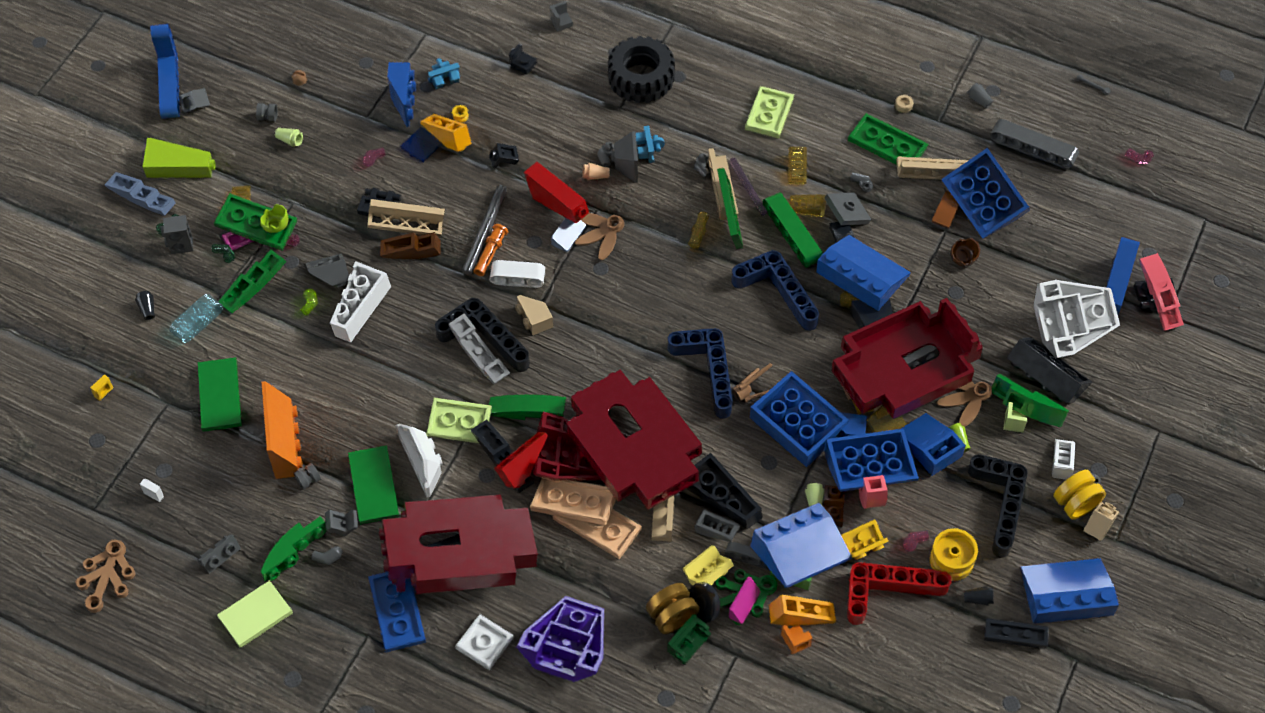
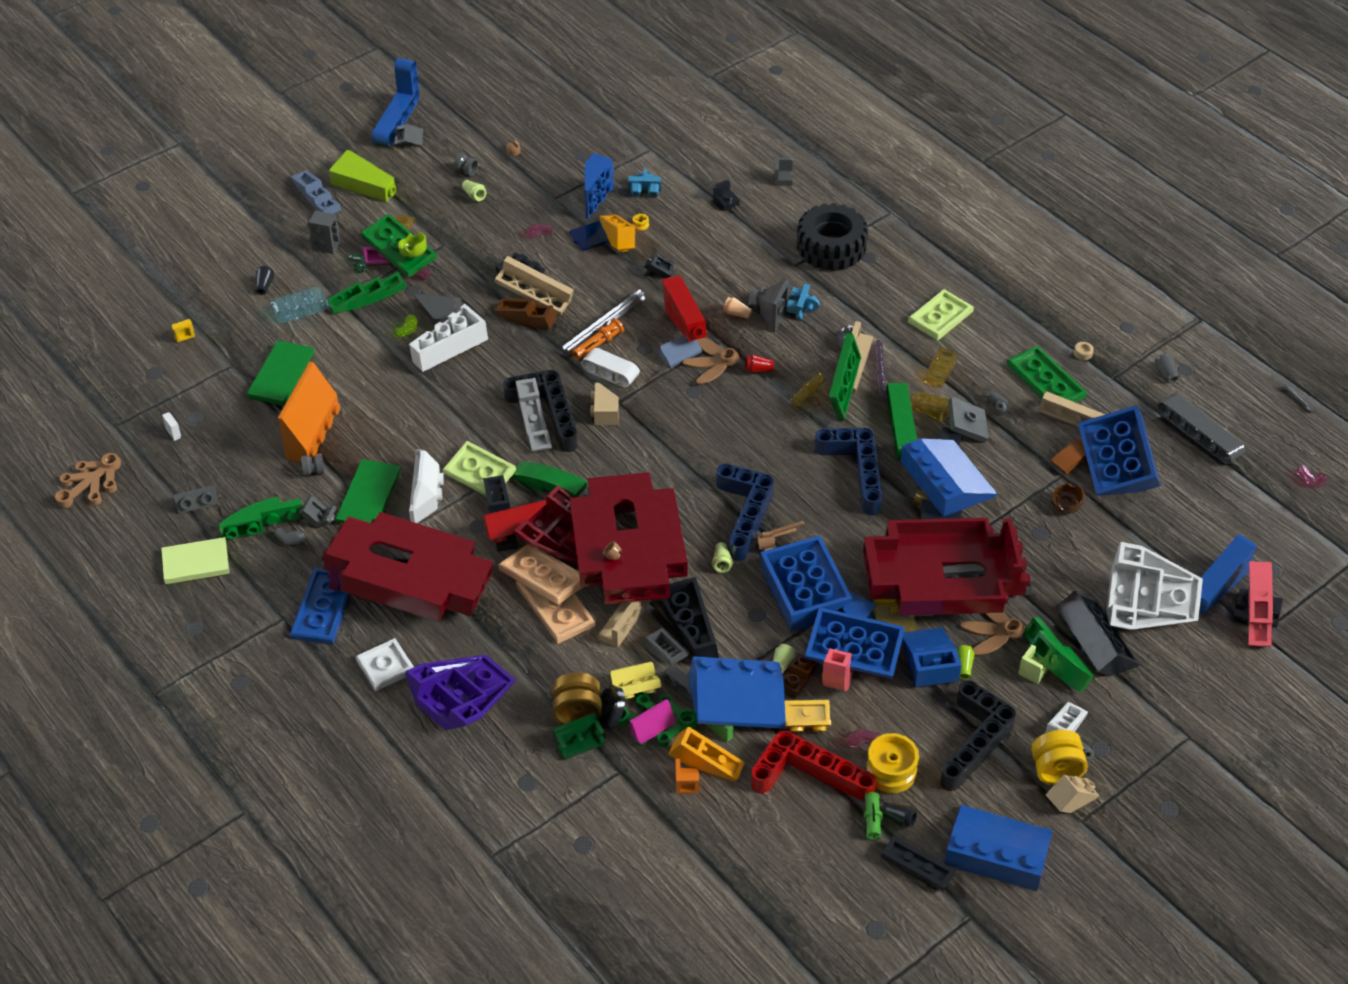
camera: 25 degrees right, 10 degrees down
(635, 460) = (612, 551): none -> medium nougat hinge
(642, 221) = (758, 364): none -> red cone
(715, 423) = (722, 560): none -> yellowish green cone
(960, 607) = (873, 807): none -> bright green pin

